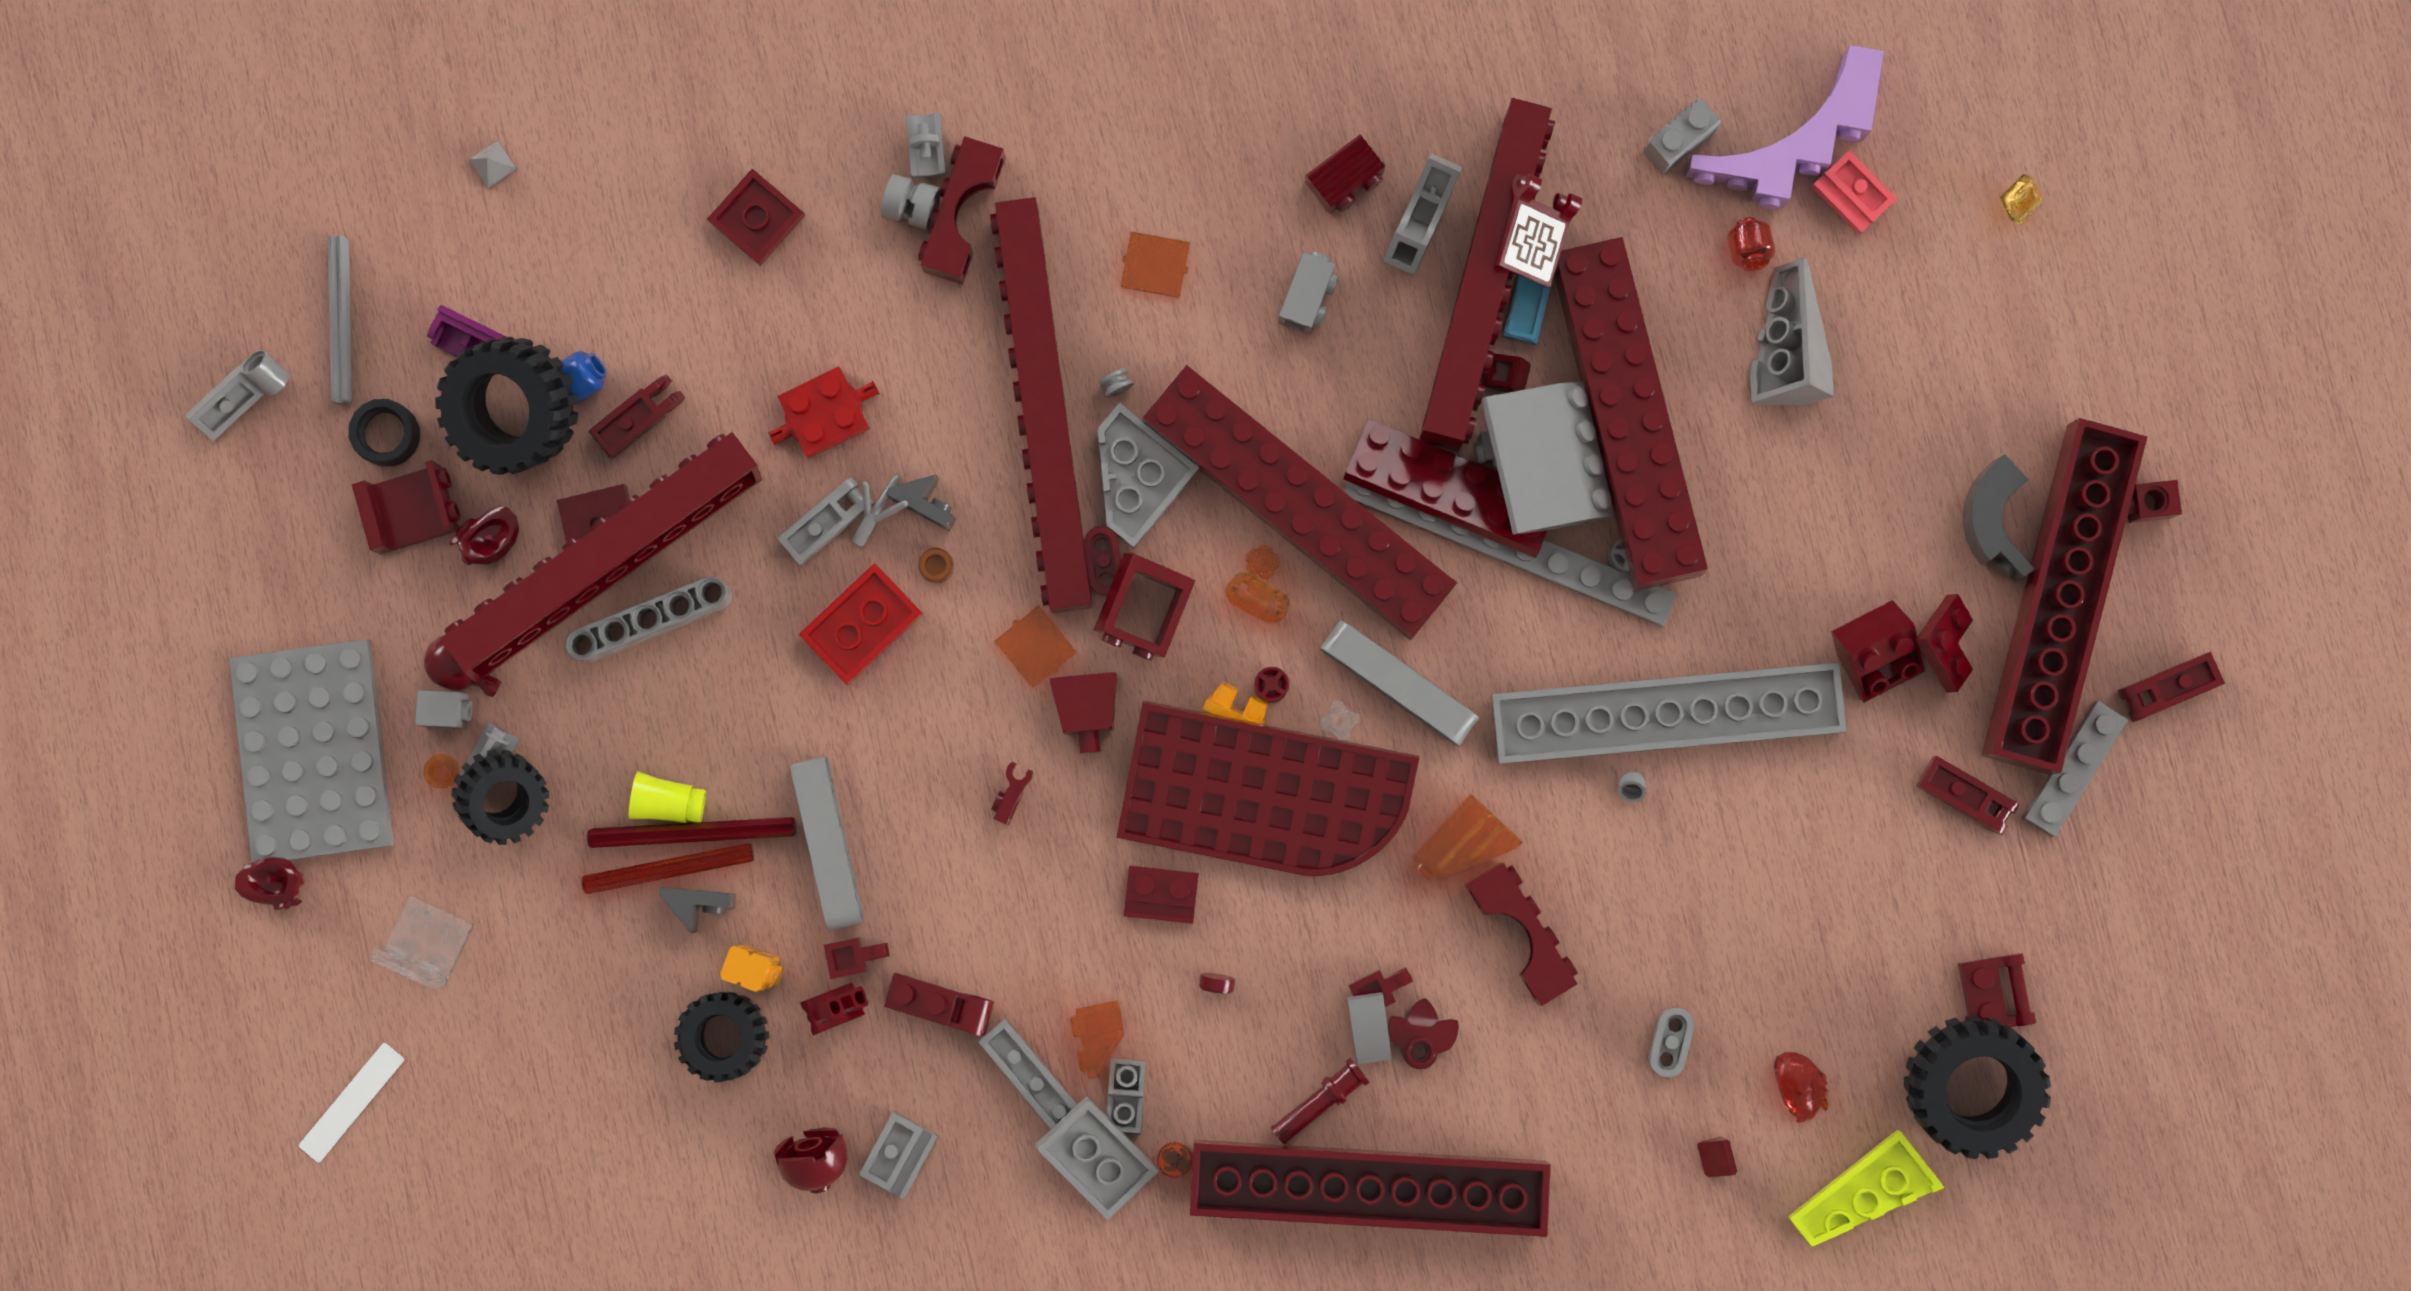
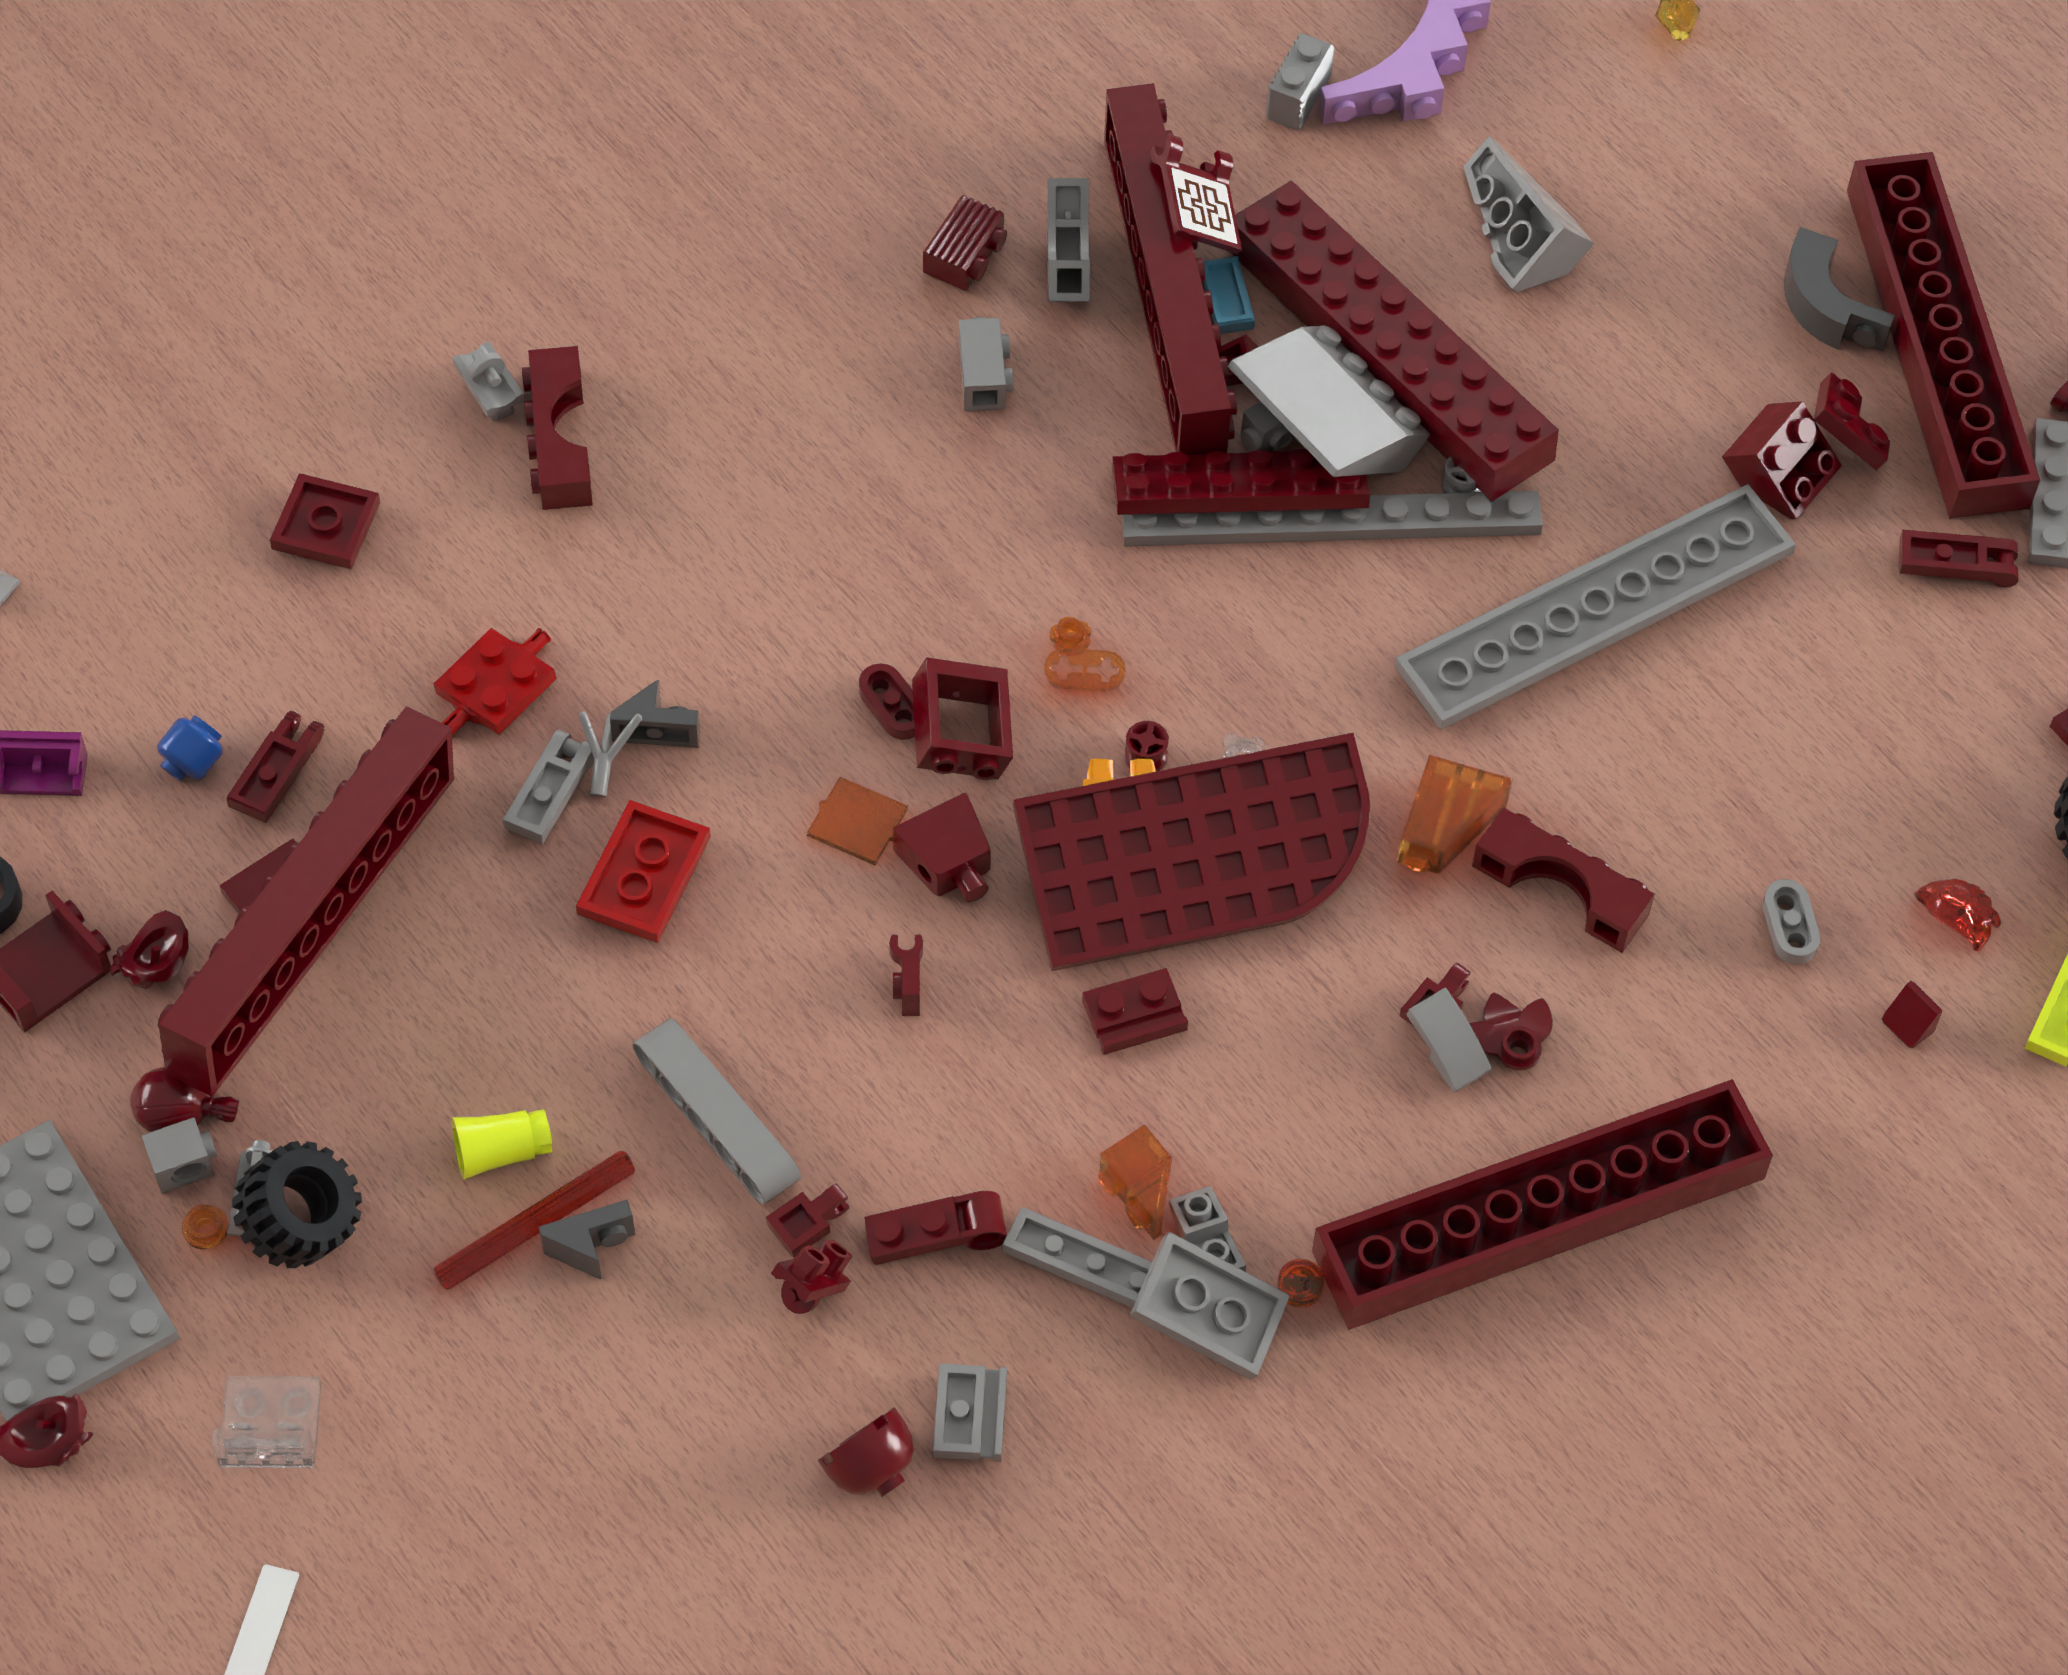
camera: 30 degrees left, 25 degrees down
(466, 413) = (76, 758): black tyre -> none
(632, 620) = (384, 981): light grey beam -> none
(691, 832) = (544, 1169): dark red axle -> none
(692, 1044) = (683, 1331): black tyre -> none
(751, 968) = (693, 1267): light orange brick -> none
(901, 194) = (482, 439): light grey wheel -> none
(936, 565) = (701, 783): dark orange tile -> none
(1043, 405) = (748, 580): dark red brick -> none
(1116, 382) = (816, 525): light grey bush -> none
(1138, 474) = (886, 601): light grey plate -> none
(1155, 264) = (799, 406): clear orange piece -> none
(1217, 983) = (1249, 1070): dark red tile -> none
(1299, 502) = (1081, 558): dark red brick -> none
(1333, 1091) = (1443, 1129): dark red pin -> none
(1399, 683) = (1287, 689): light grey beam -> none
(1632, 787) = (1601, 697): light grey hinge -> none
(1751, 244) = (1427, 149): clear red head -> none
(1853, 192) = (1505, 69): coral plate -> none
(2166, 501) = (1980, 218): dark red brick -> none

